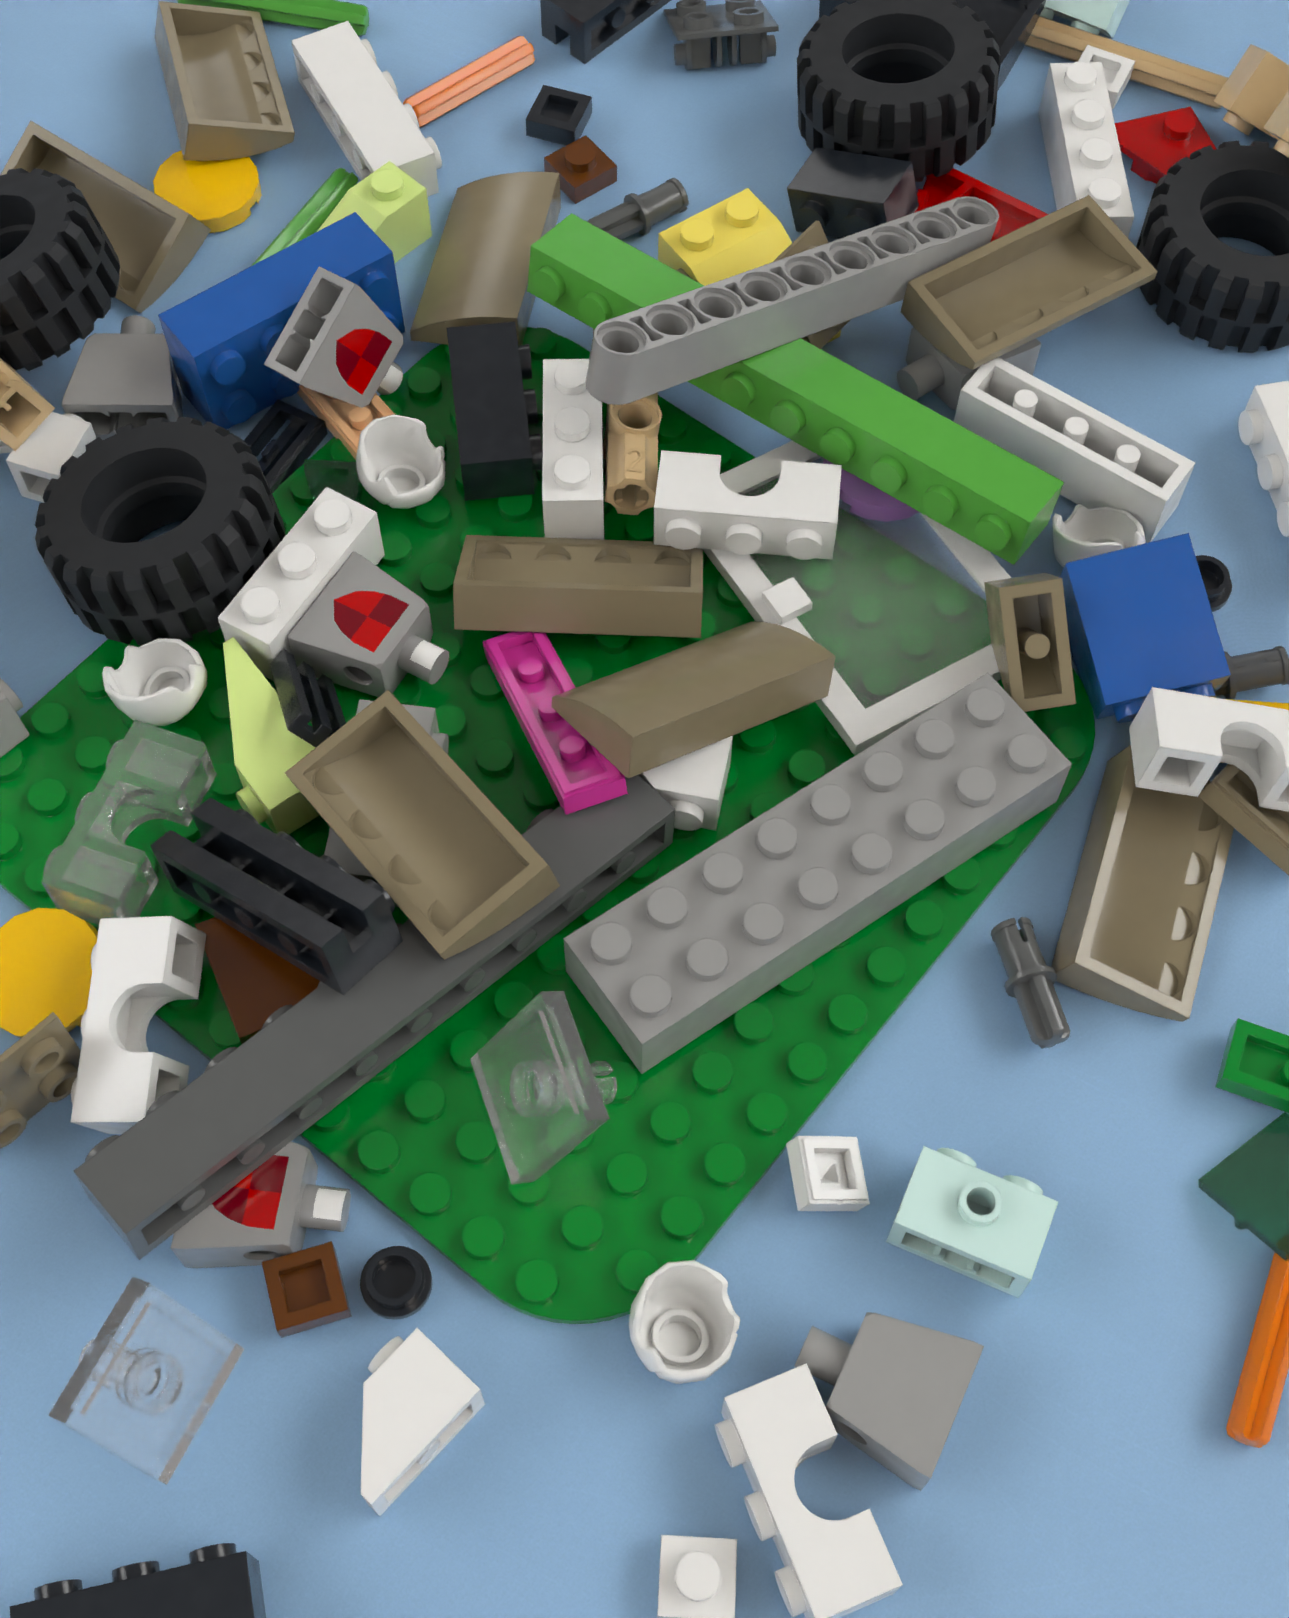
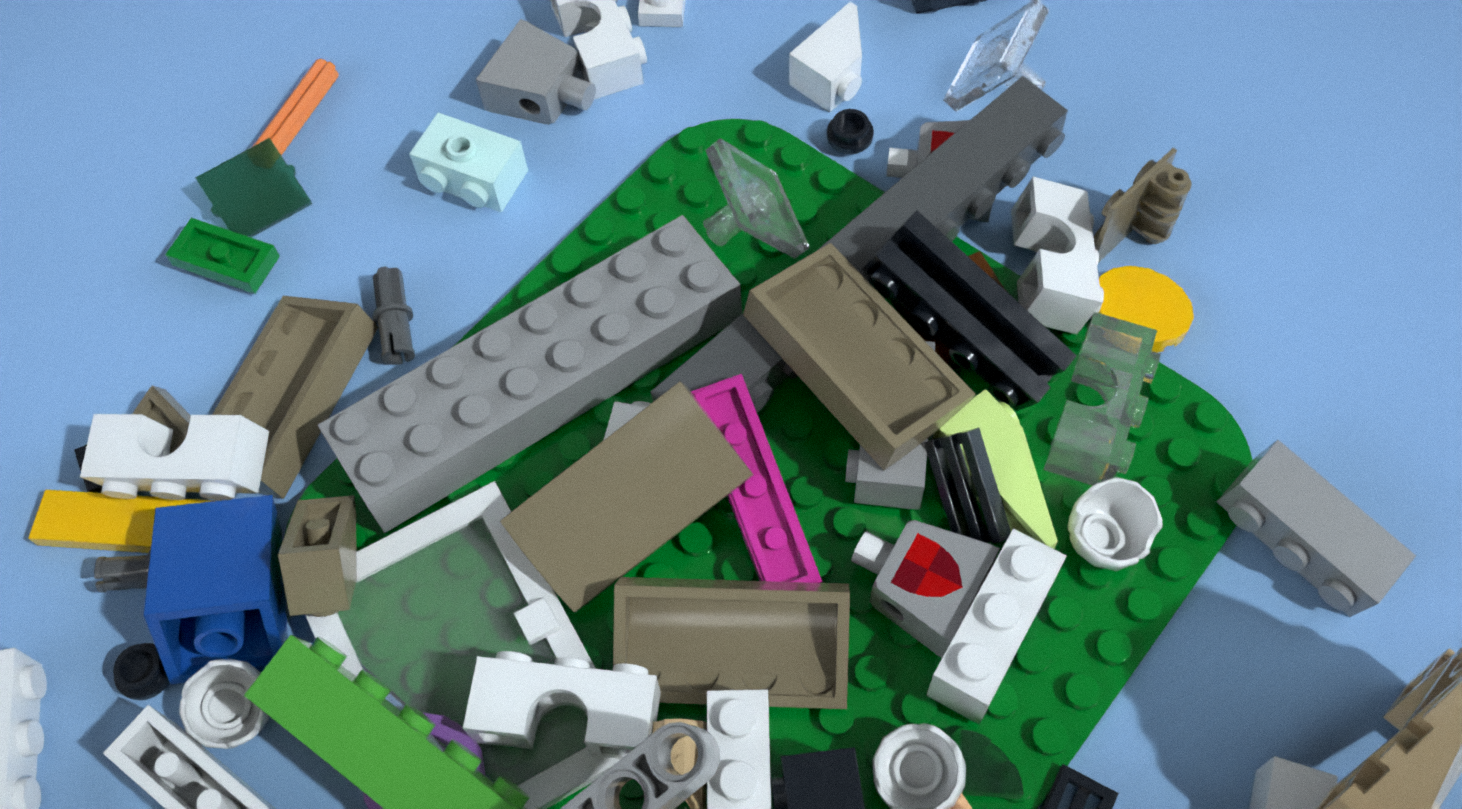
camera: 175 degrees left, 0 degrees up
(135, 486) = (1217, 654): black tyre -> none
(306, 1289) = (903, 120): reddish brown plate -> none
(683, 1322) = (663, 103): white hair -> none
(827, 1173) = (561, 193): white tile -> none

